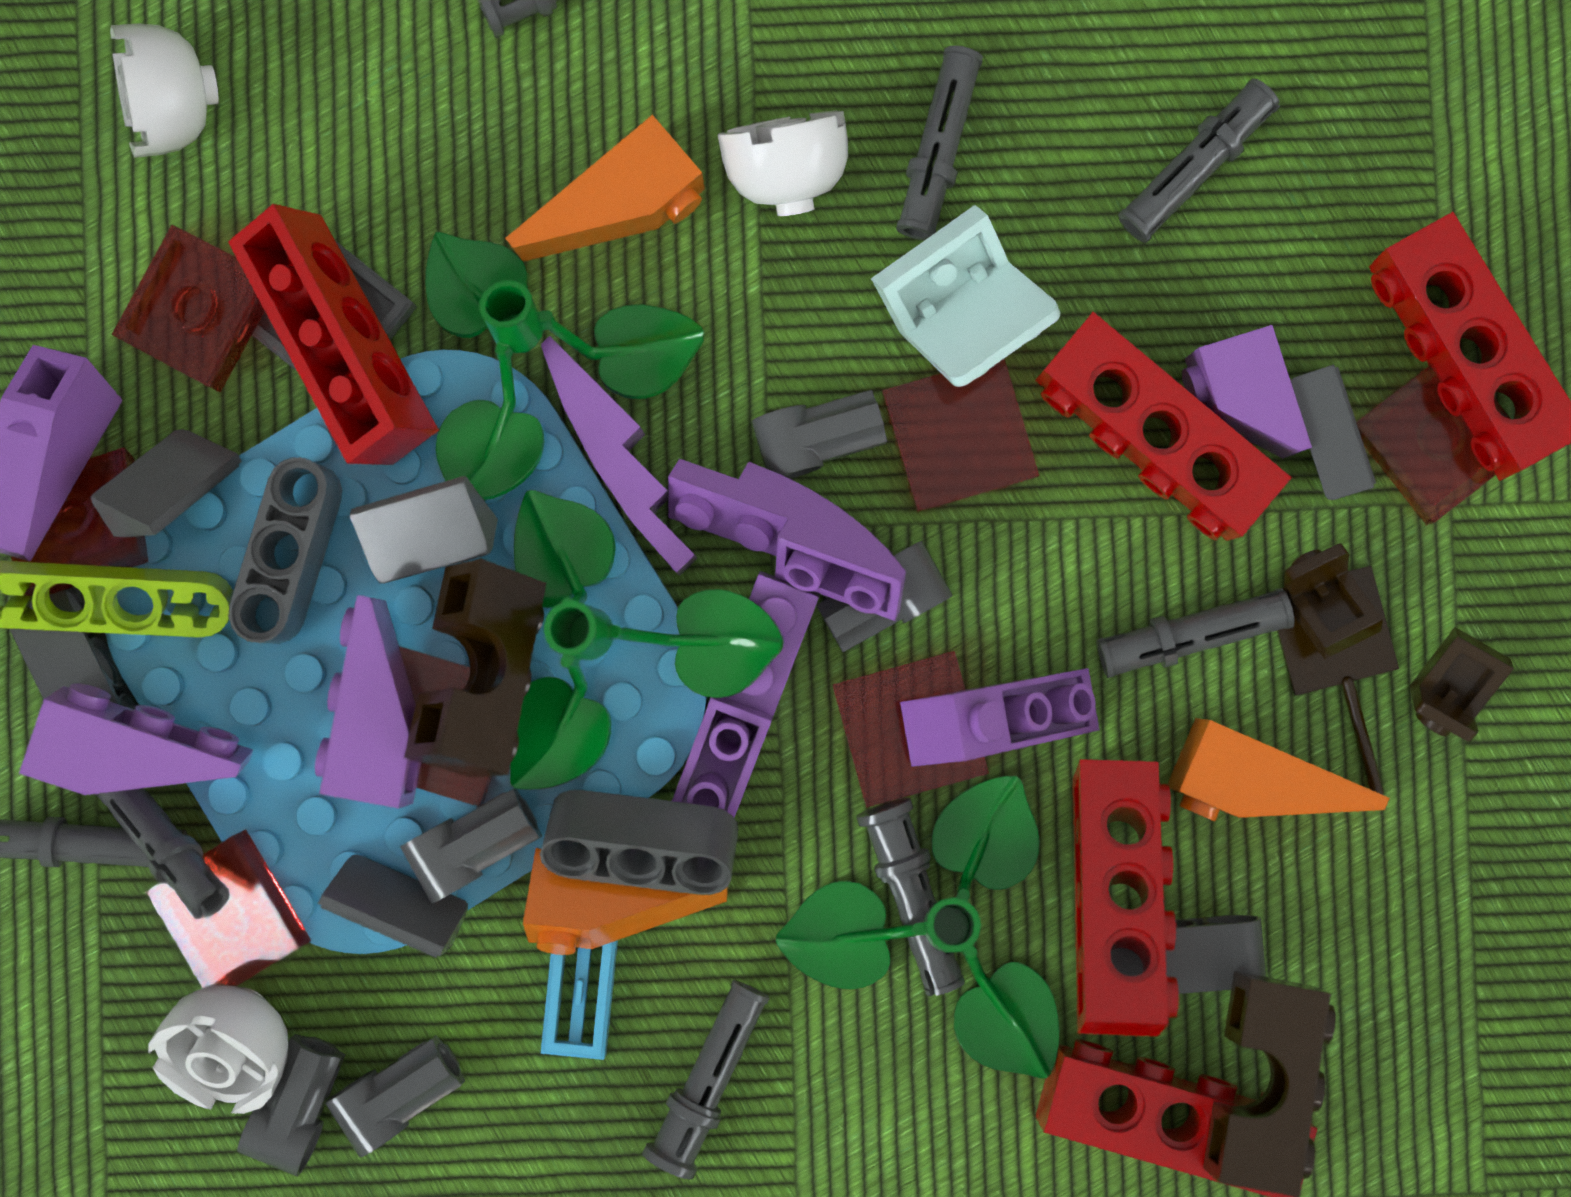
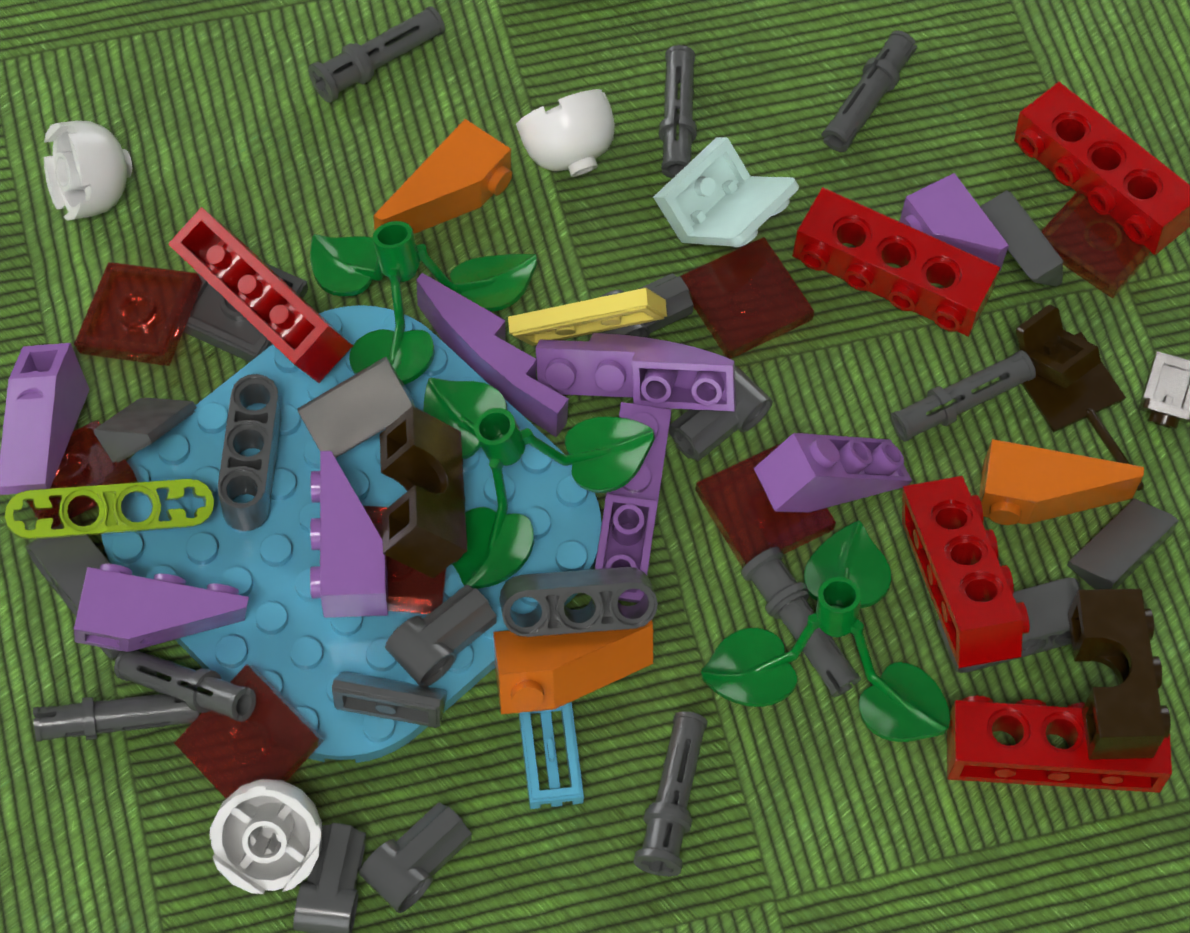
camera: 20 degrees left, 25 degrees down
(744, 448) = (588, 316): none -> light yellow tile
(1333, 874) = (1123, 545): none -> dark grey slope

